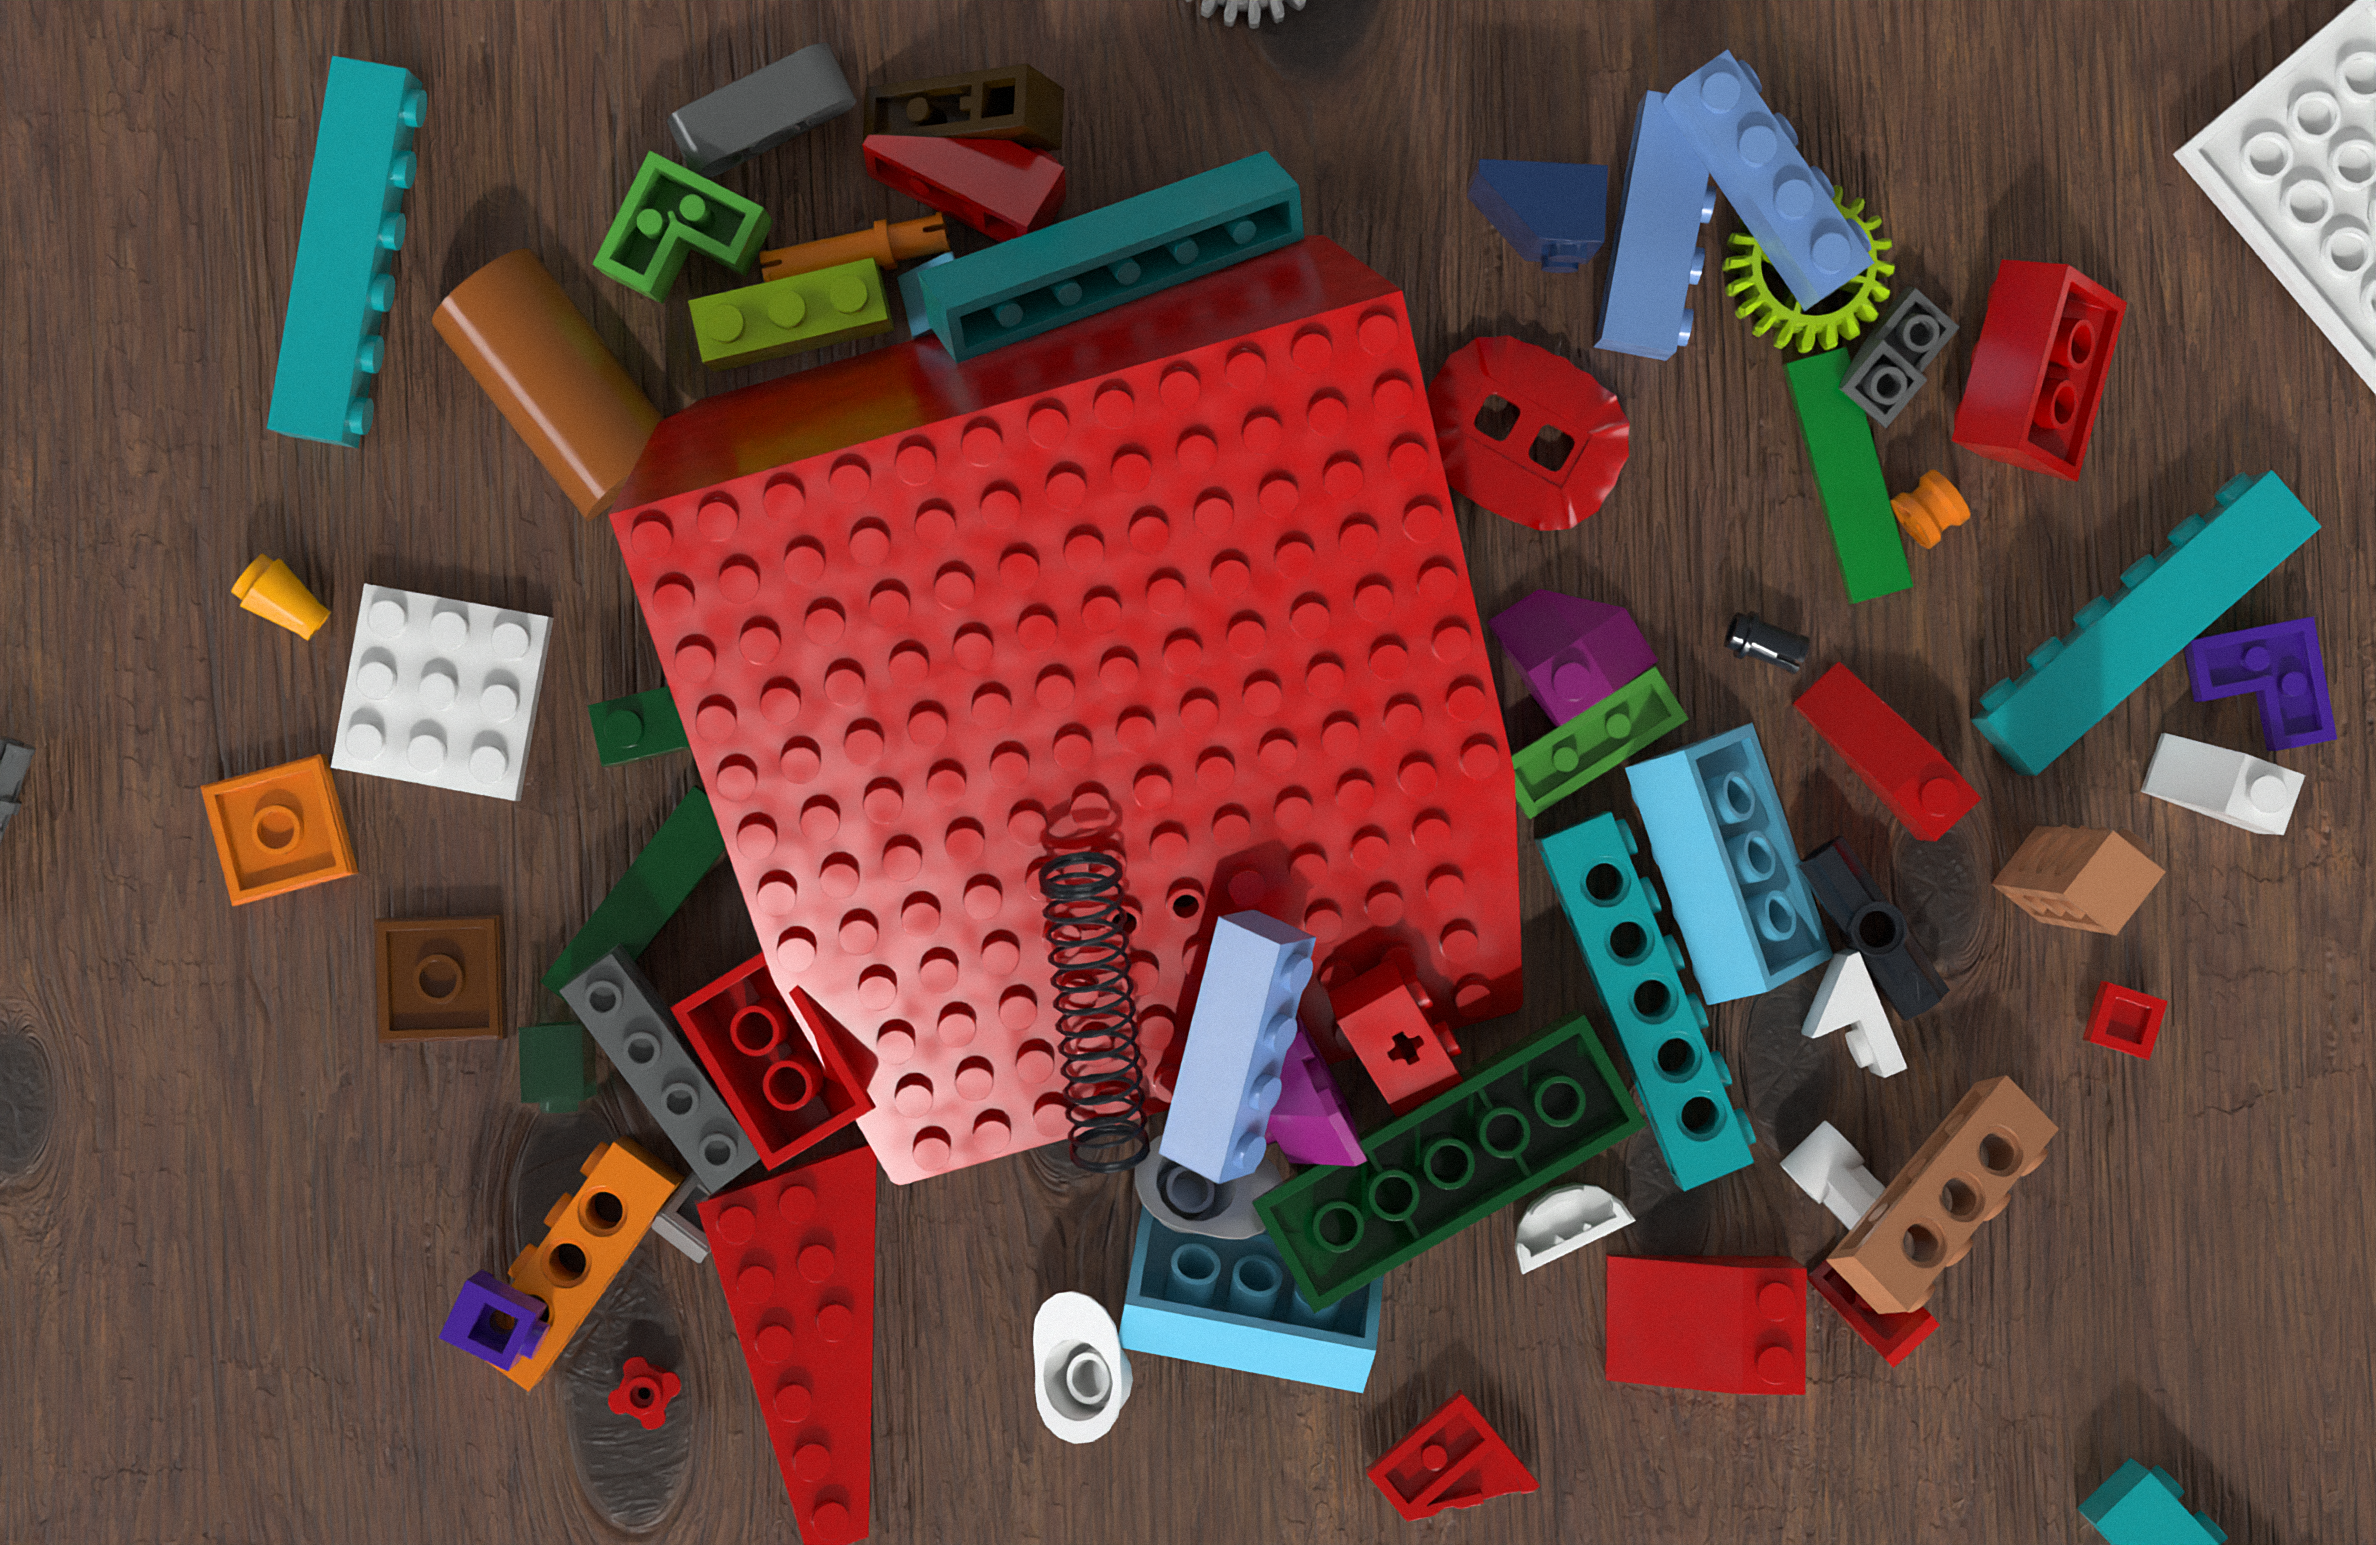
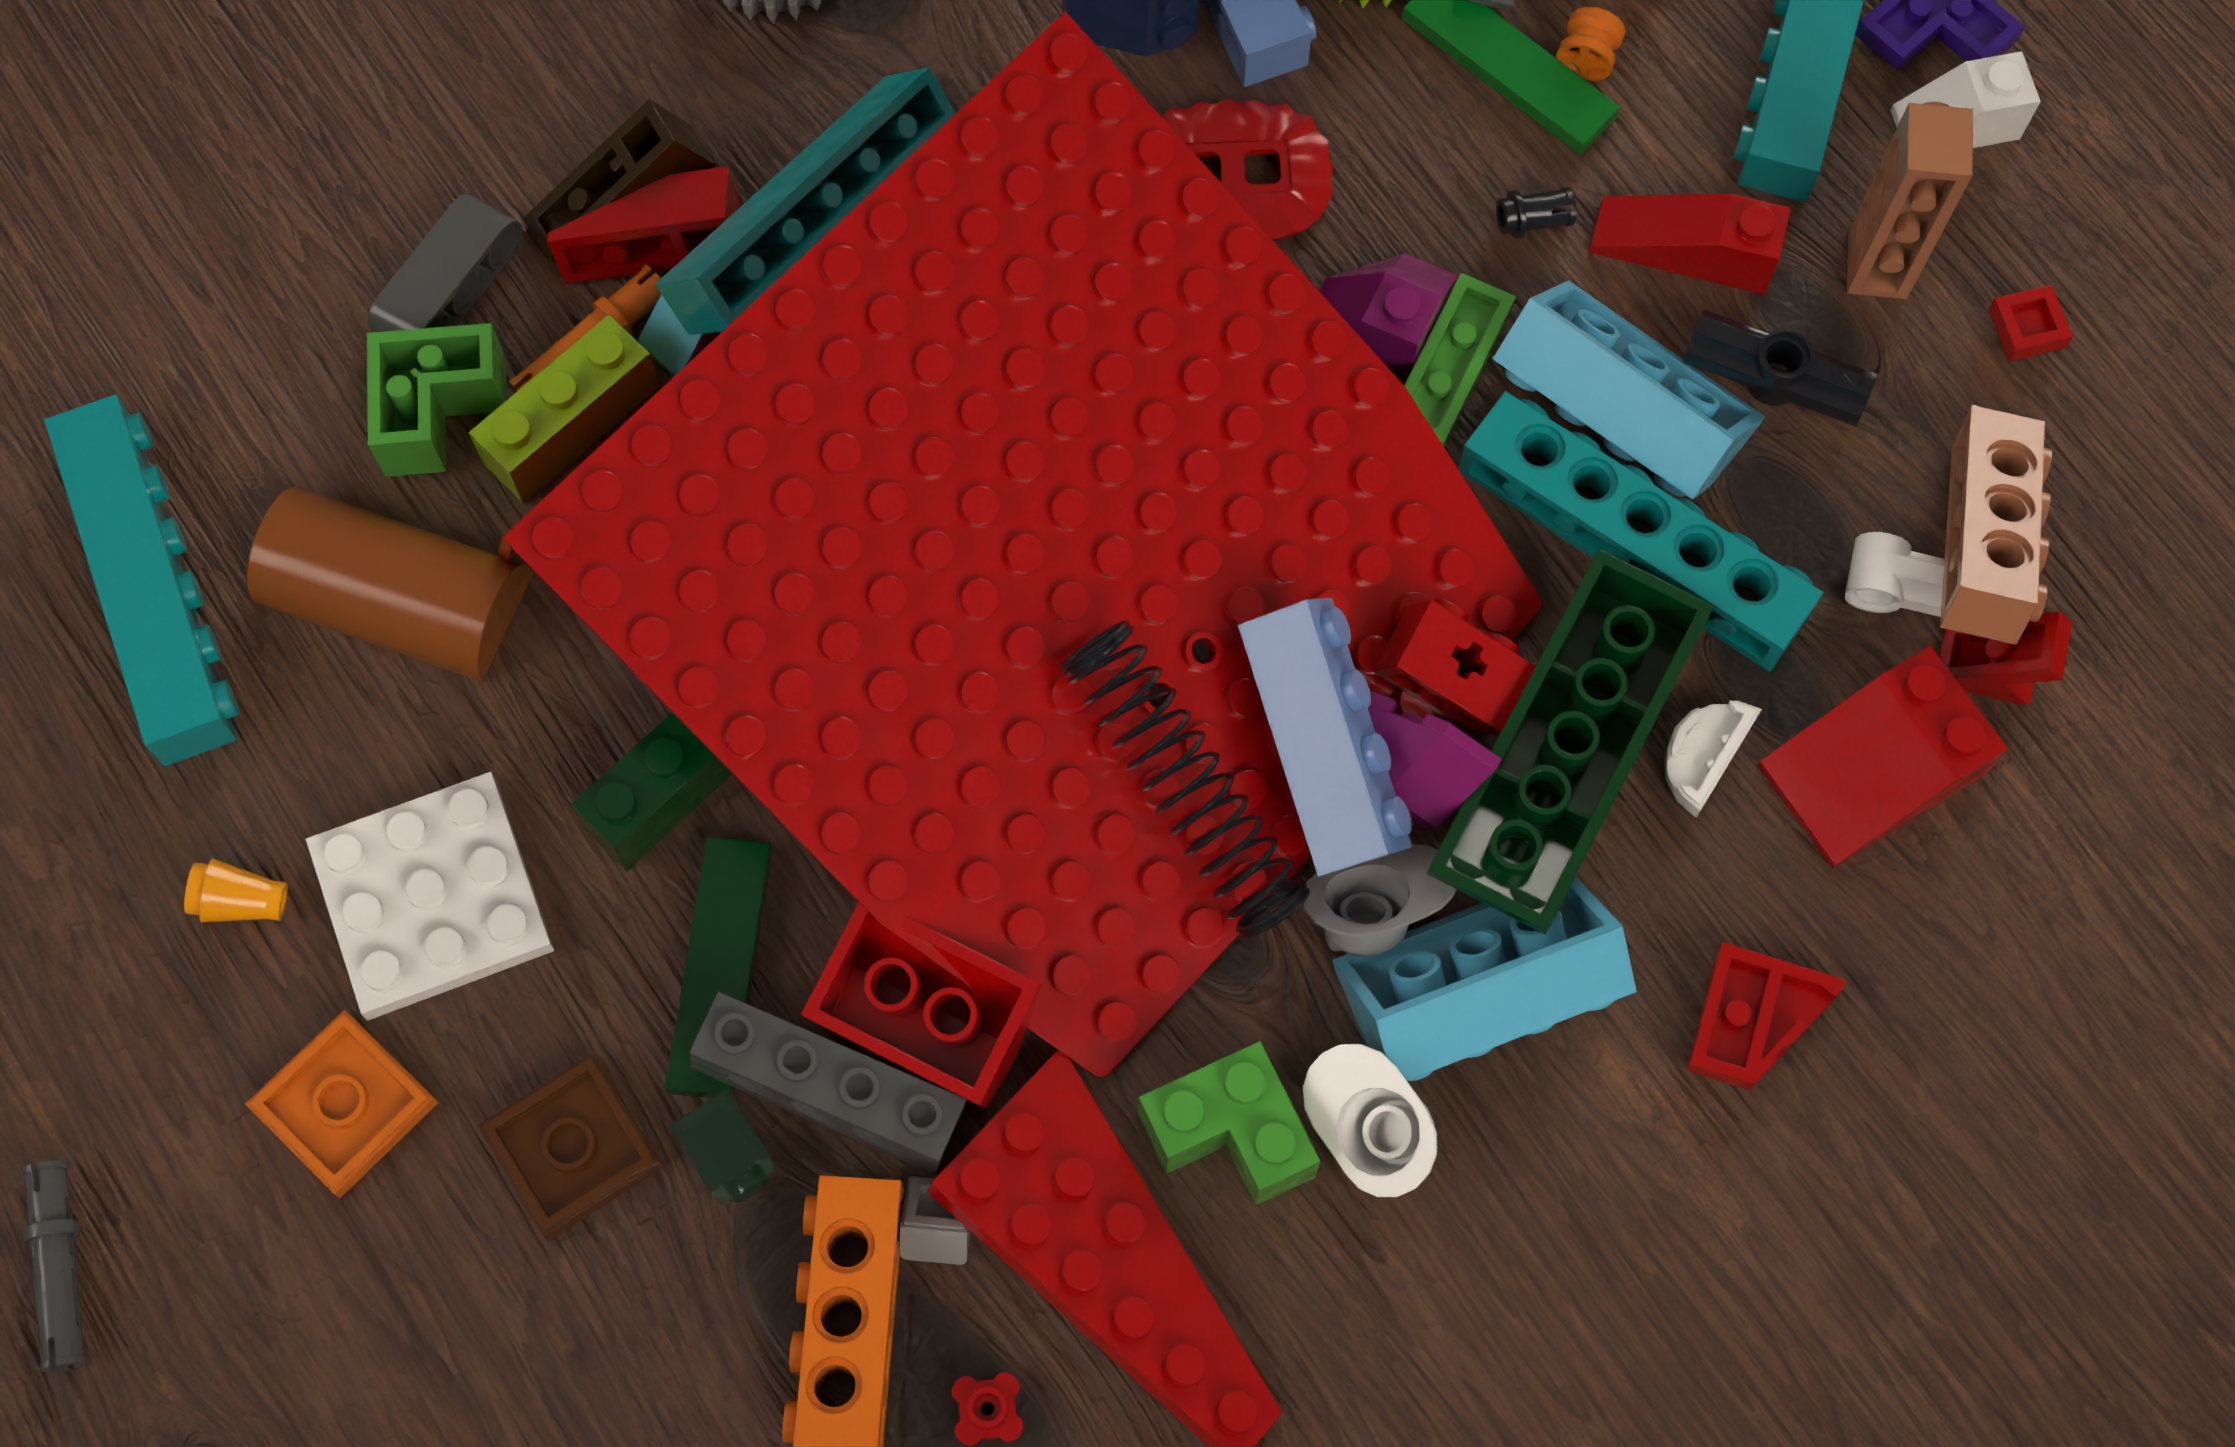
camera: 35 degrees left, 20 degrees down
(474, 1326) = (783, 1382): dark purple brick -> none
(980, 1281) = (1233, 1106): none -> bright green brick
(1850, 998) = (1807, 429): white slope -> none

